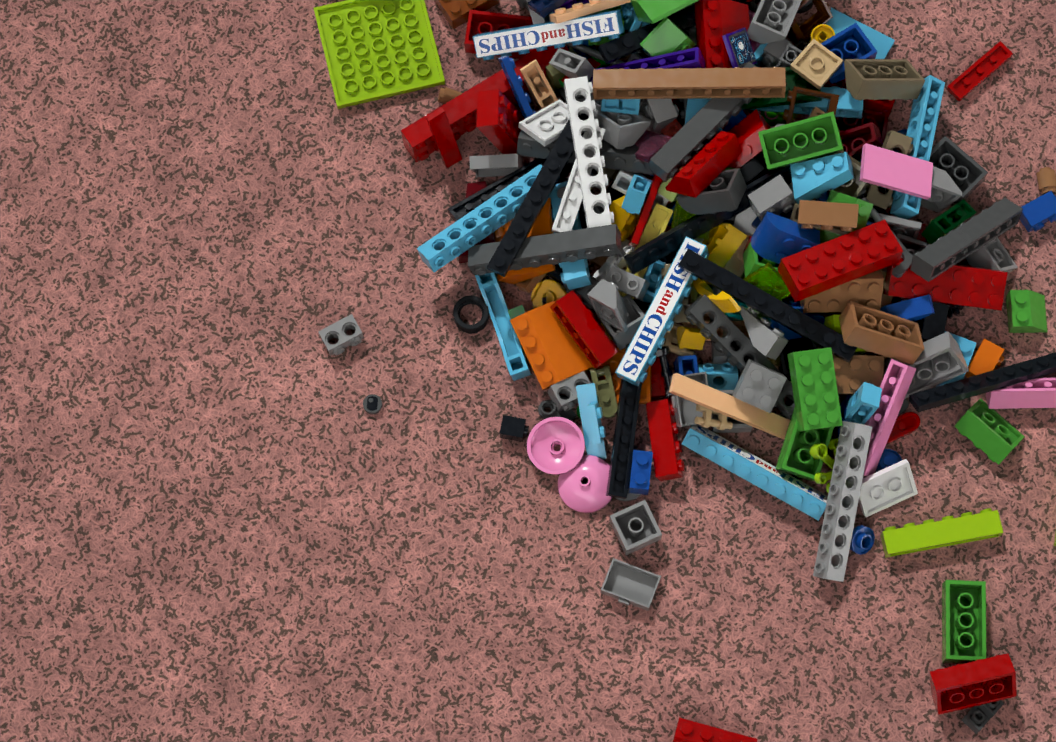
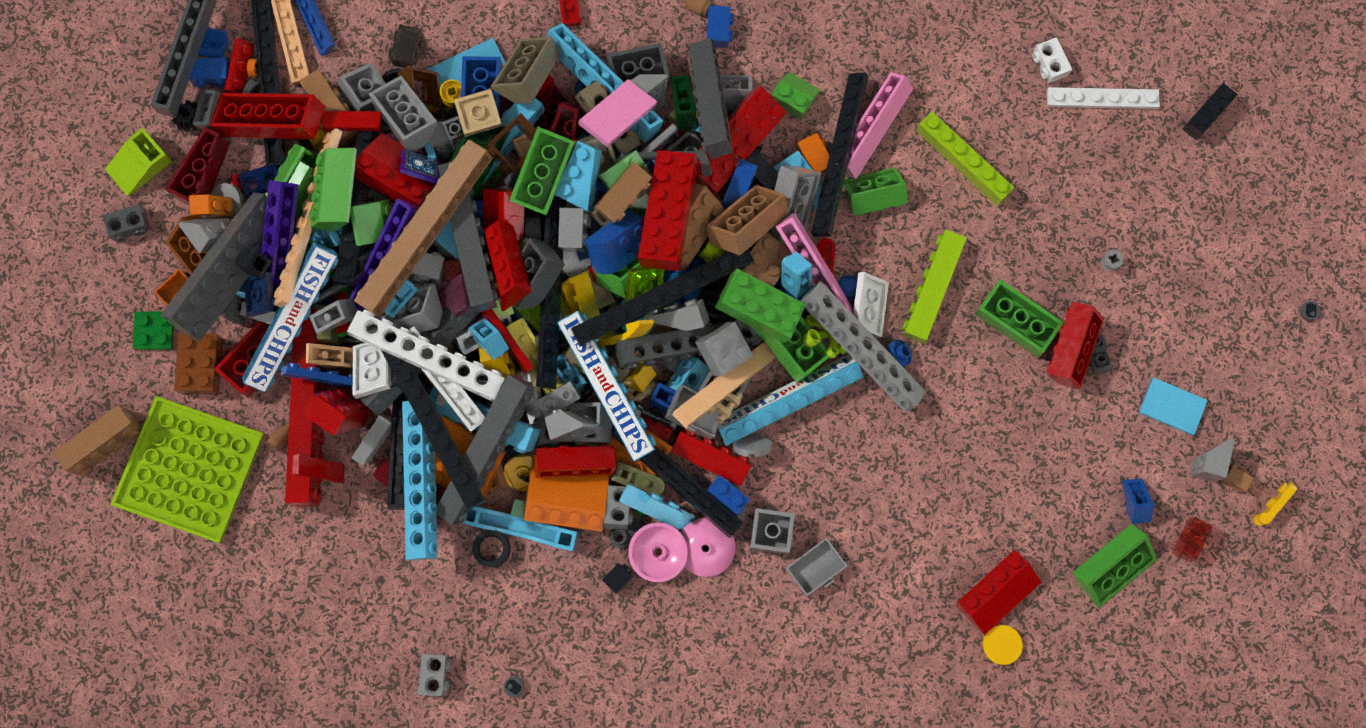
camera: 60 degrees left, 5 degrees up
(697, 466) = (752, 444): none -> light grey tile

